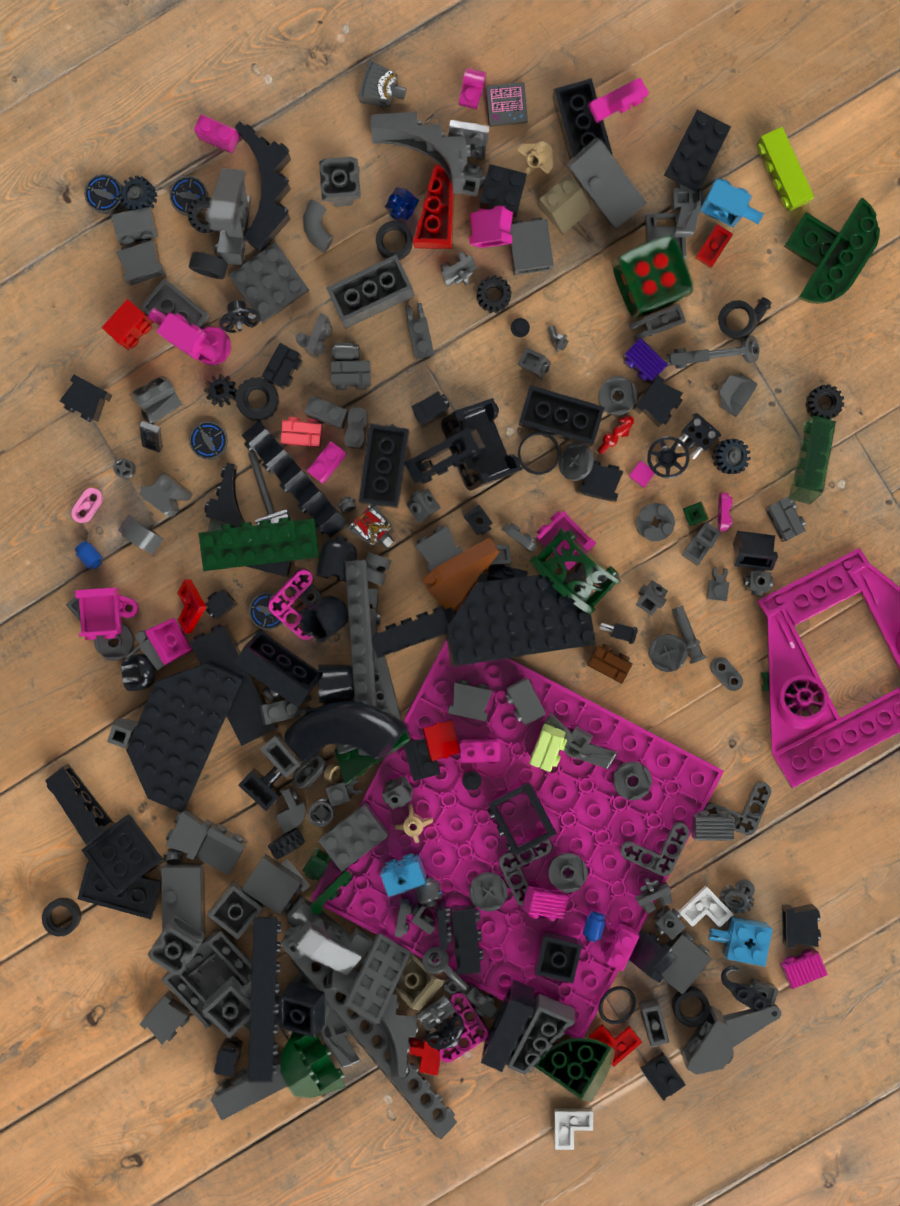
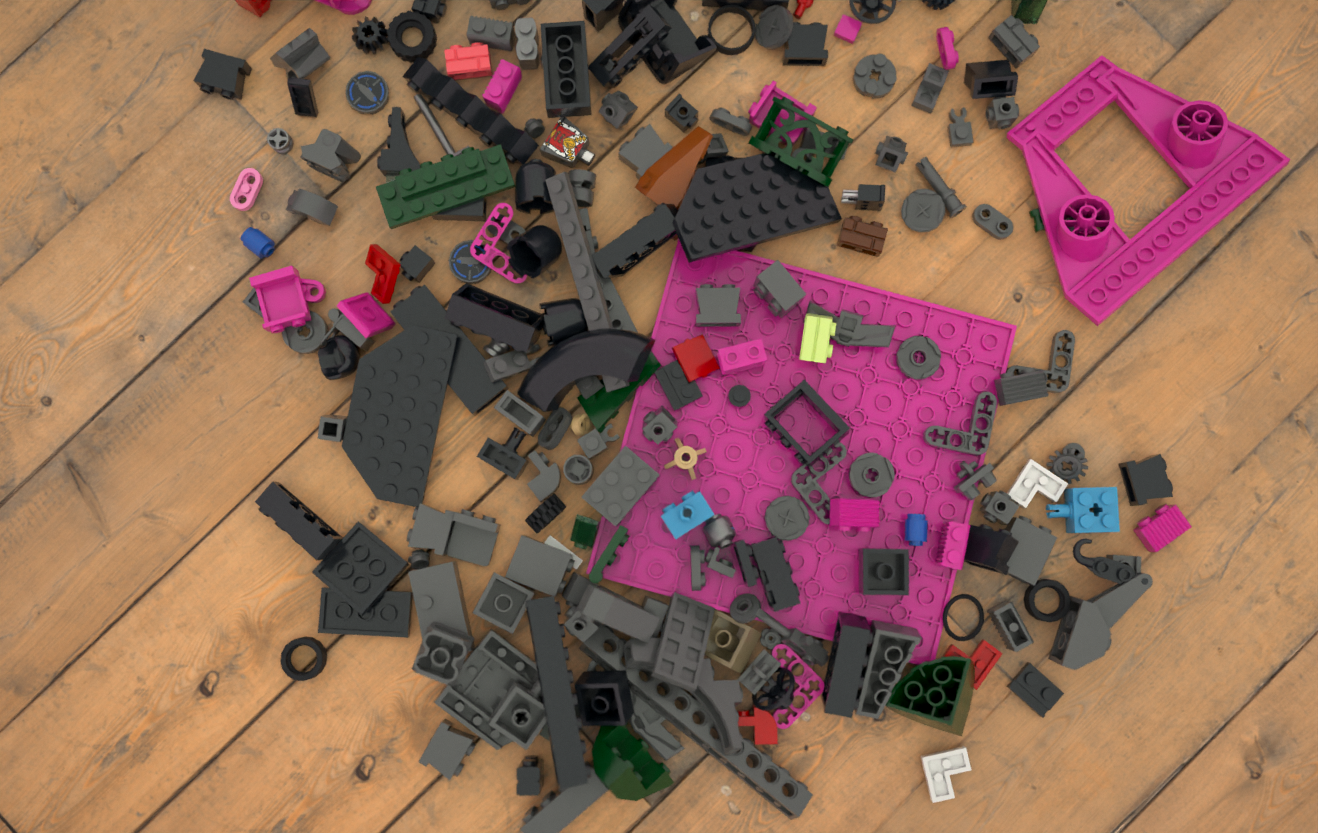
camera: 15 degrees left, 5 degrees down
(695, 513) = (916, 57): dark green tile -> none

